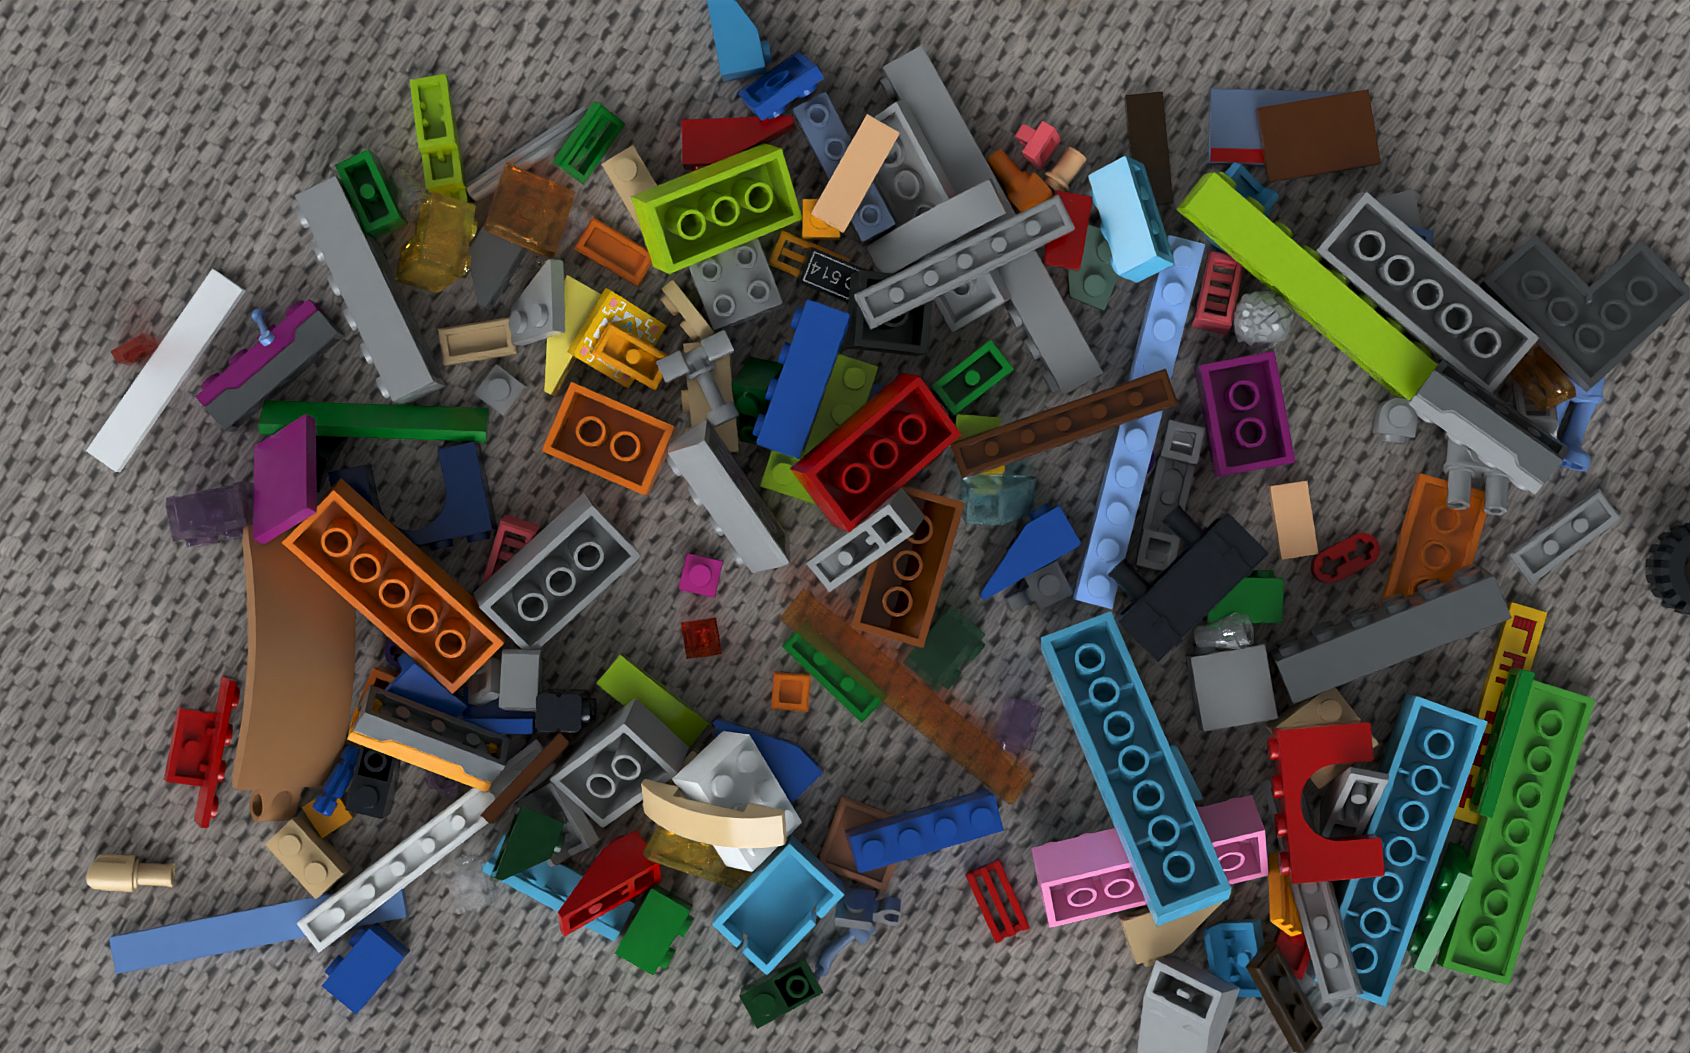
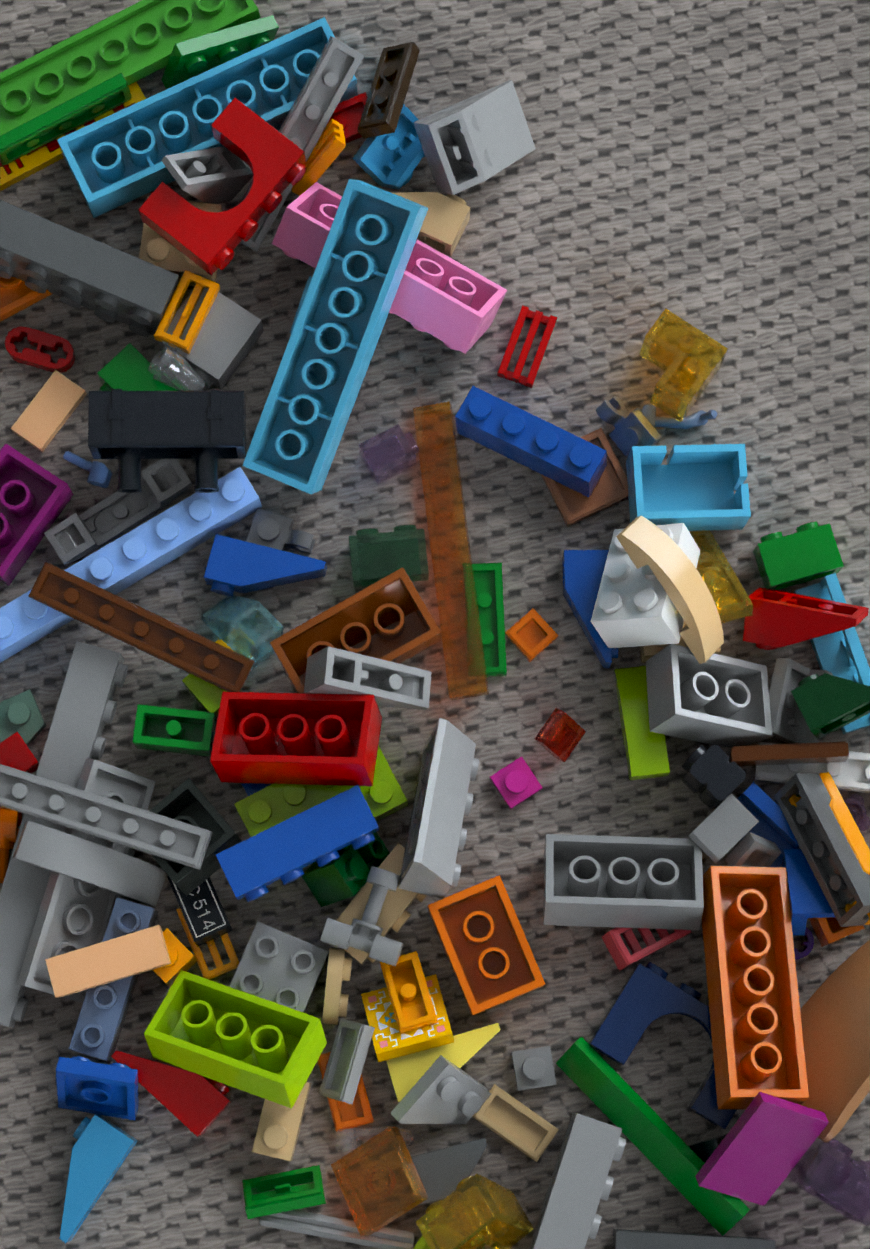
camera: 135 degrees left, 10 degrees down
(629, 268) = (346, 1061): none -> light grey tile
(780, 992) = (747, 424): dark green slope -> none
(871, 1002) = (688, 362): none -> clear yellow brick
(1210, 508) = (99, 473): none -> medium blue hand
(1251, 654) = (174, 339): none -> light orange tile

